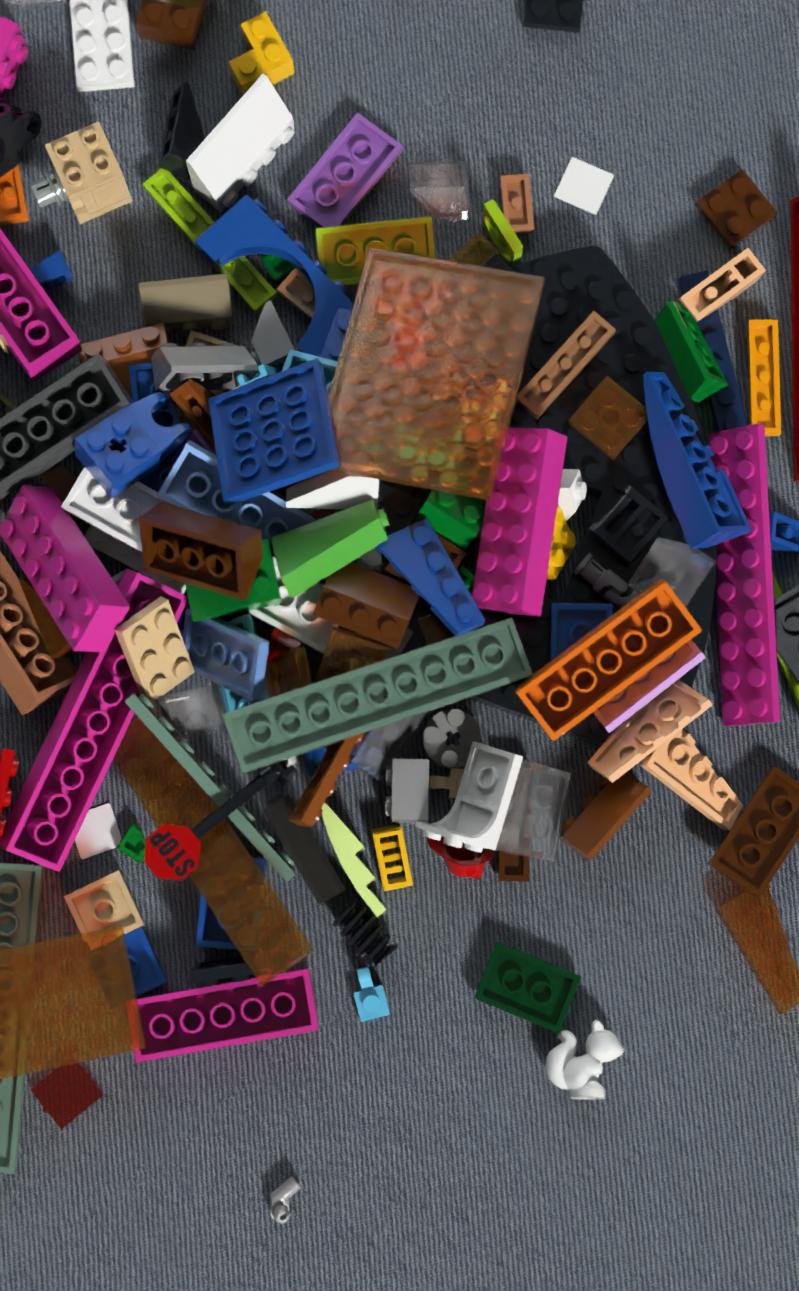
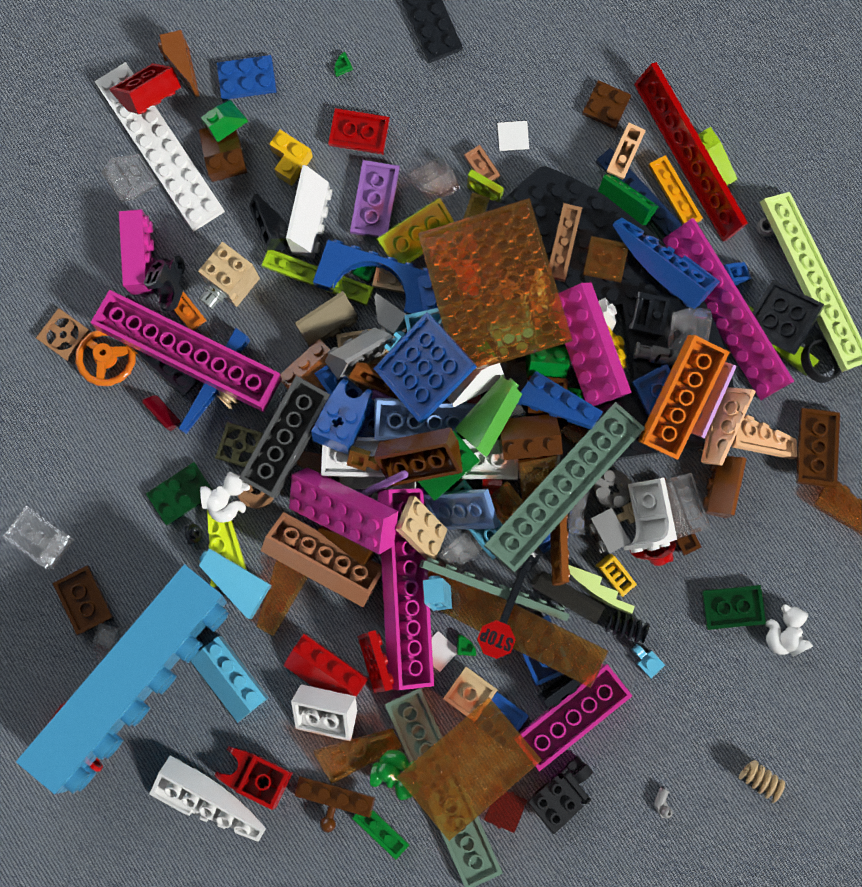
camera: 25 degrees left, 0 degrees up
(123, 512) = (361, 459): none -> pearl gold plate
(128, 749) = (437, 593): none -> medium azure brick
(132, 562) = (384, 483): none -> medium lavender piece
(147, 1116) = (561, 797): none -> black plate
(374, 70) = (359, 131): none -> red plate
(435, 1242) = (763, 779): none -> tan piece

